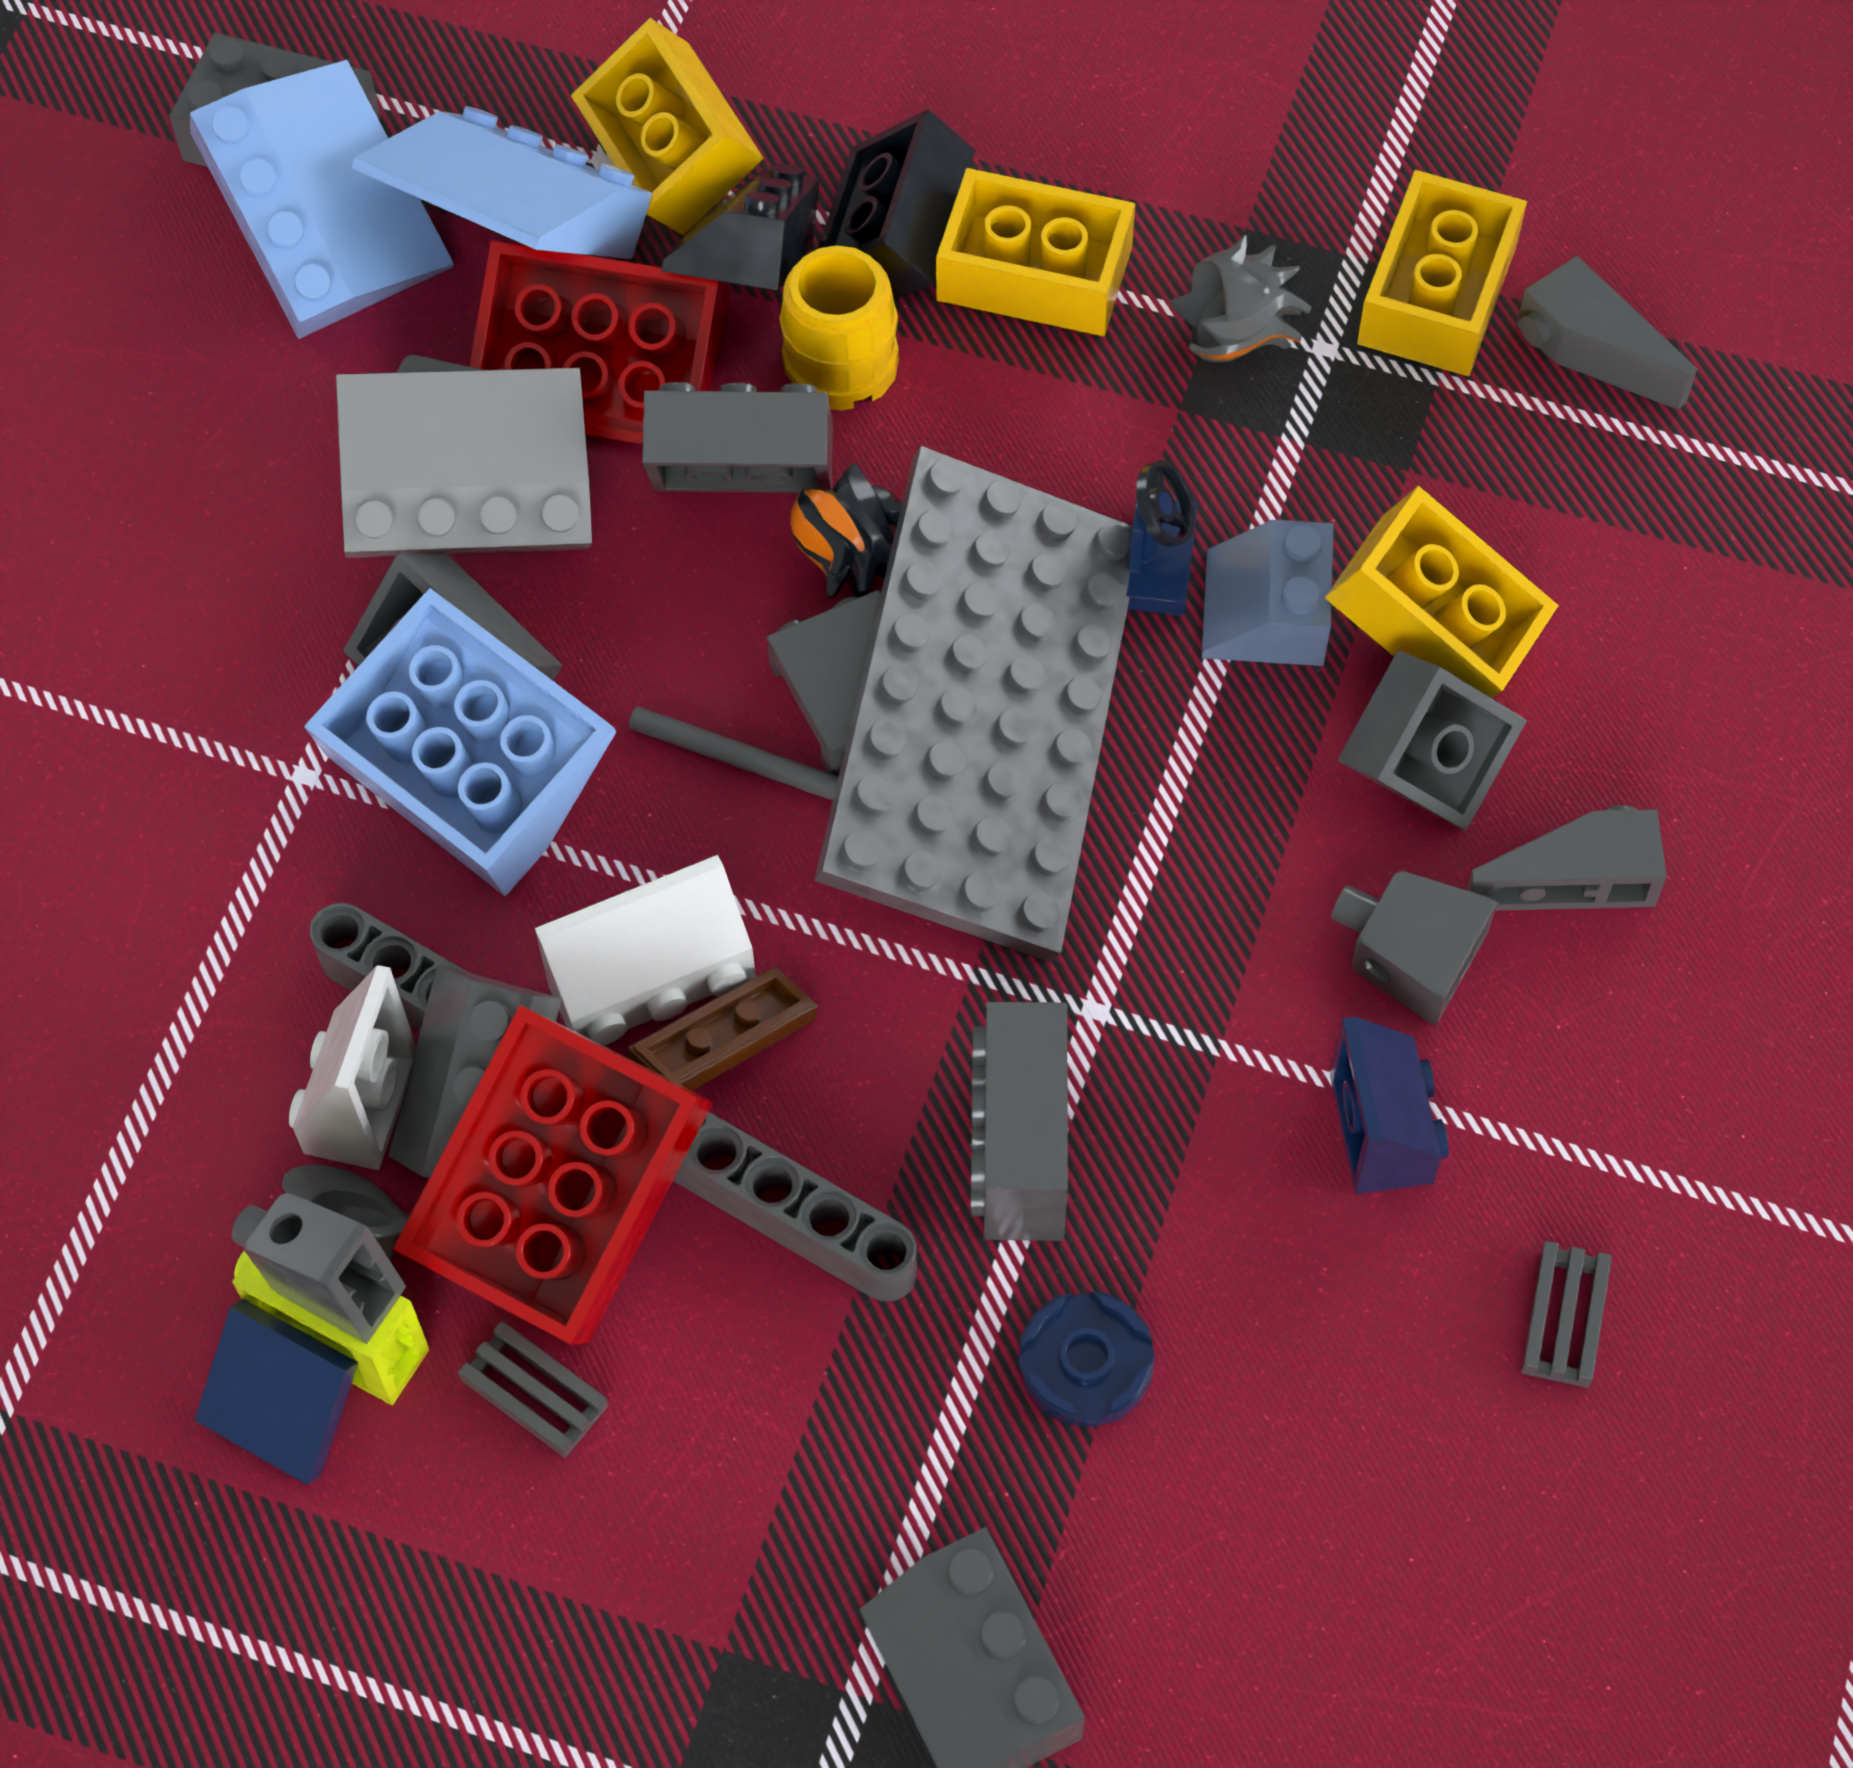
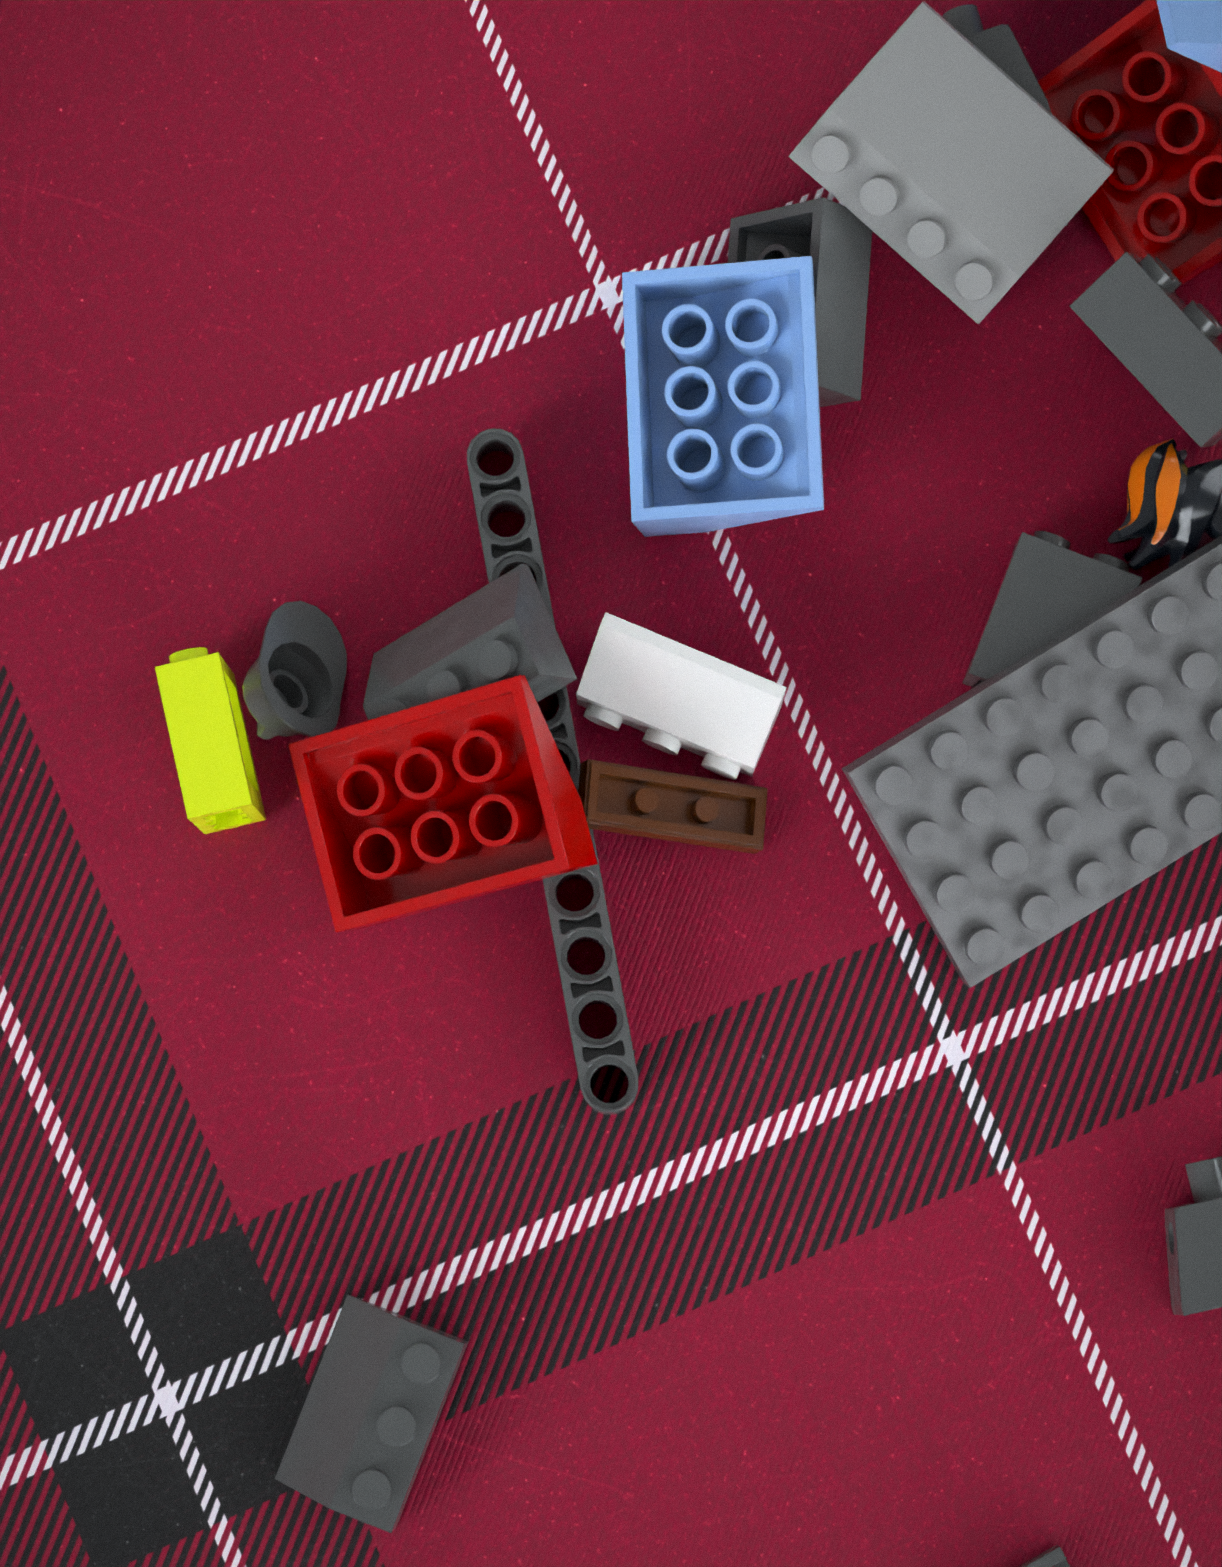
camera: 50 degrees right, 20 degrees up
(276, 1391) = (127, 758): dark blue tile -> none
(321, 1262) = (205, 724): dark grey torso -> none
(356, 1076) = (396, 582): white slope -> none
(491, 1356) = (303, 978): dark grey tile -> none
(733, 752) = (915, 592): dark grey bar -> none
(1020, 1121) = (796, 1089): dark grey brick -> none
(1086, 1359) = (670, 1288): dark blue tile -> none
(1385, 1108) = (1057, 1346): dark blue slope -> none

